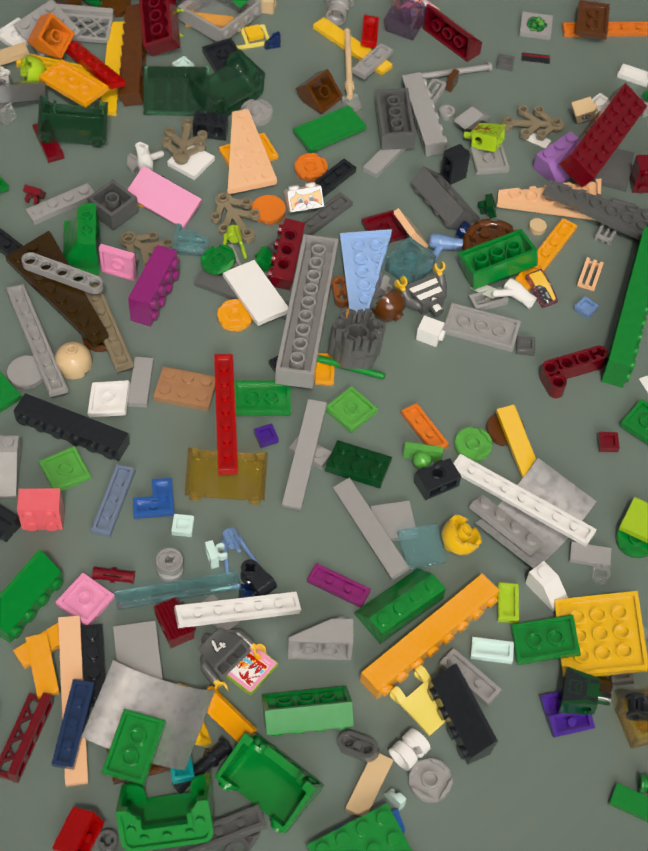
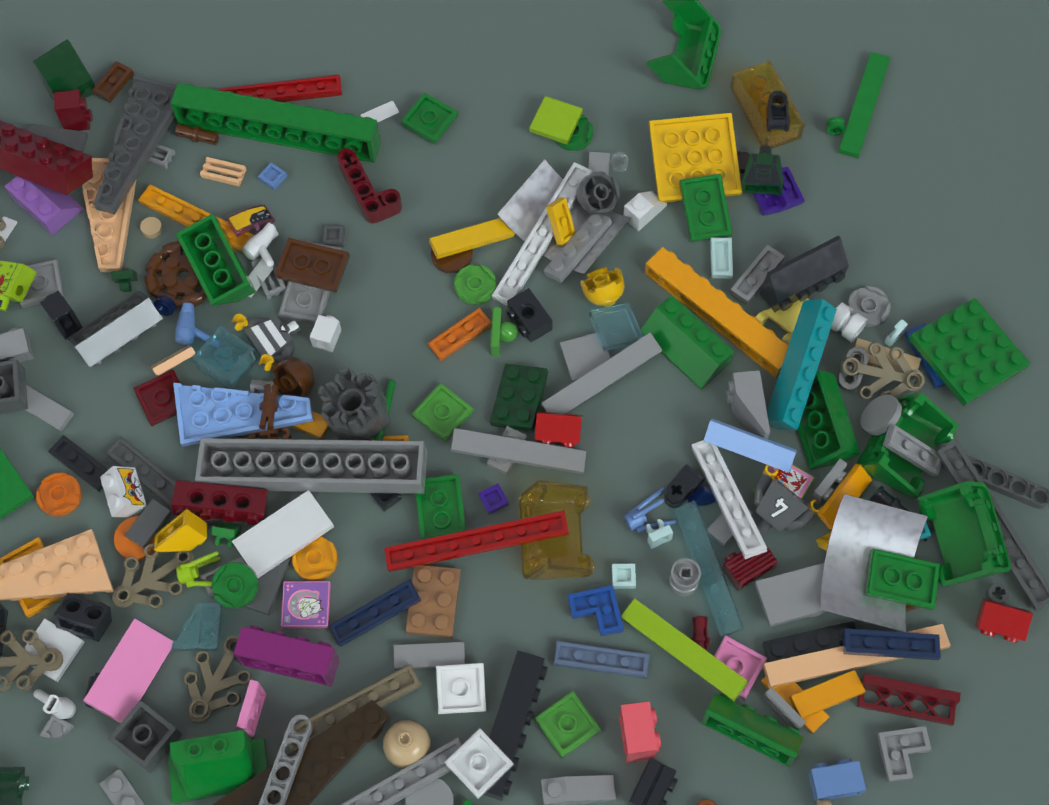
camera: 90 degrees left, 10 degrees up
(37, 627) = (783, 709): none -> light grey tile
(41, 396) = (479, 763): none -> white tile
(104, 556) = (684, 650): none -> lime tile
(181, 347) = (374, 613): none -> dark blue tile
(197, 307) = (306, 605): none -> tile
(209, 174) = (83, 617): none -> black brick
(245, 705) = (825, 489): none -> light grey plate
(262, 780) = (912, 450): none -> light grey tile
(263, 229) = (181, 533): none -> yellow slope
(275, 211) = (148, 524): none -> dark grey tile
(284, 630) = (750, 445): none -> light blue tile
(303, 760) = (881, 414): none -> light grey tile
(323, 486) = (558, 428): none -> red brick
(338, 585) = (672, 406): magenta tile -> none
(348, 773) = (887, 372): none -> dark tan plant
(360, 282) = (268, 407): none -> reddish brown pin
(362, 688) = (800, 364): none -> teal brick
(493, 323) = (312, 265): none -> reddish brown plate
(508, 603) = (671, 242): lime tile -> none
(529, 507) = (561, 220): none -> yellow plate
(558, 541) = (598, 193): none -> dark grey cylinder
(608, 442) = (458, 153): dark red plate -> none
(626, 257) = (197, 134): none -> reddish brown pin

